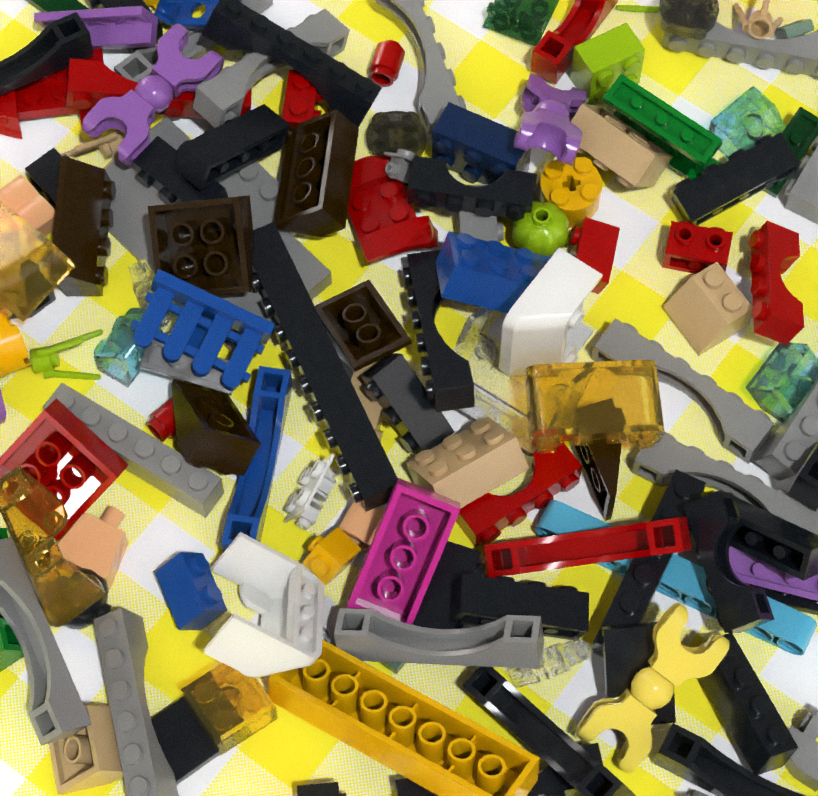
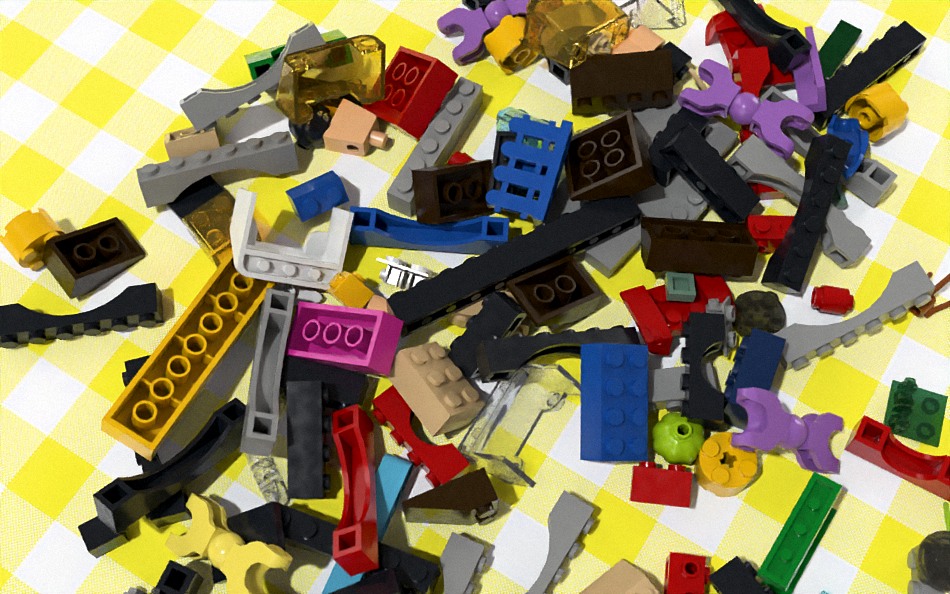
camera: 85 degrees right, 0 degrees up
(47, 358) = (511, 83): lime plant -> none
(366, 200) = (680, 287): none -> sand green plate
(548, 316) = (571, 429): white windscreen -> none
(593, 403) = (488, 485): clear yellow windscreen -> none
(603, 59) = (869, 488): lime brick -> none
(619, 147) = (772, 496): tan brick -> none

